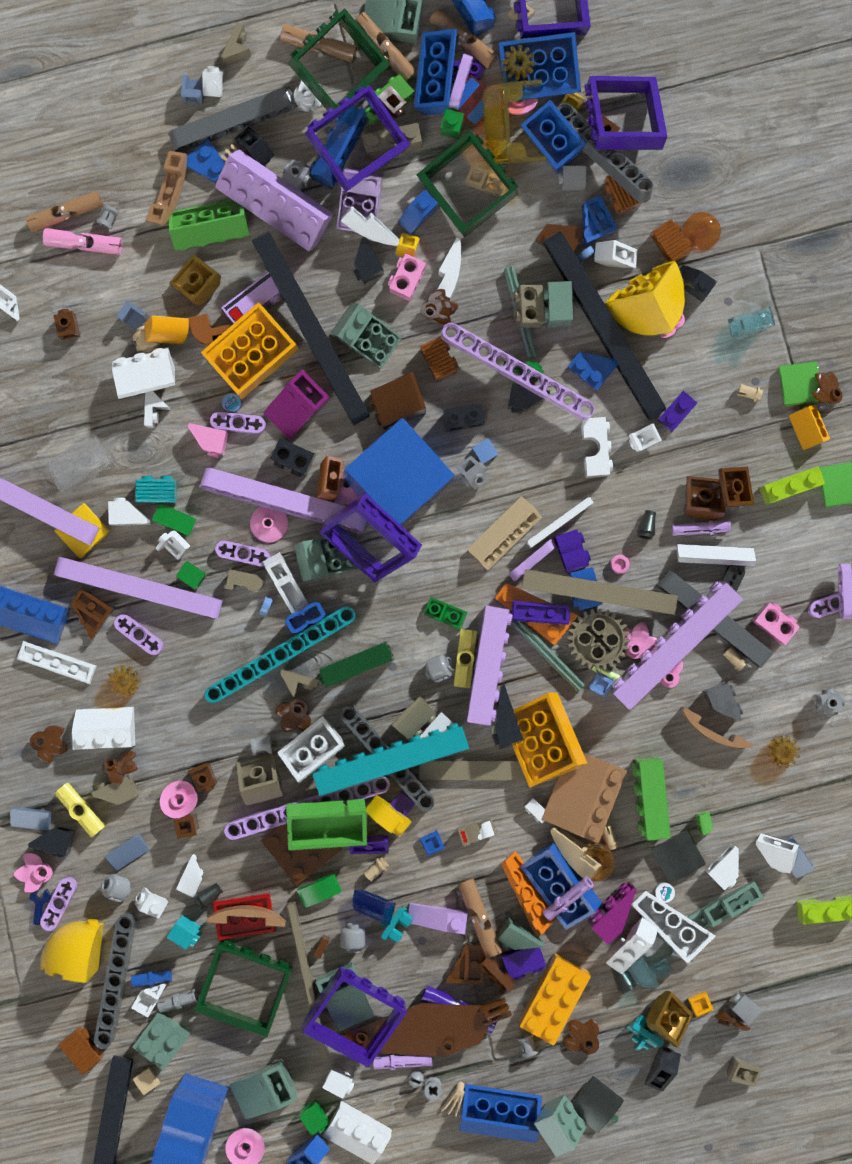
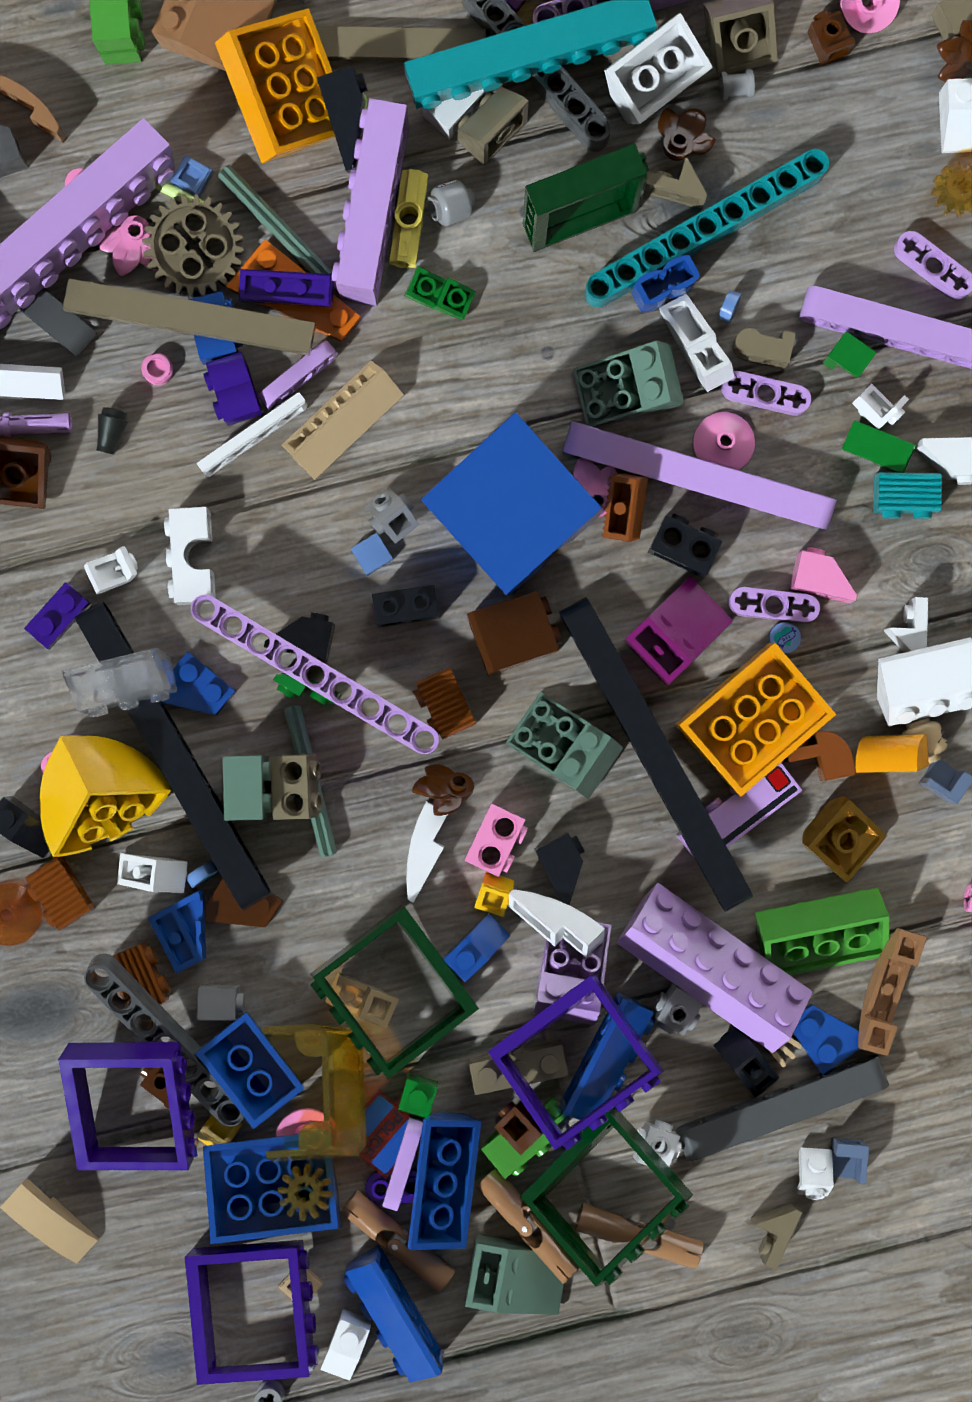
camera: 175 degrees right, 0 degrees up
(384, 524) = (505, 382): dark purple window -> none
(635, 364) = (121, 682): none -> clear slope
(672, 47) = (49, 1221): none -> tan slope

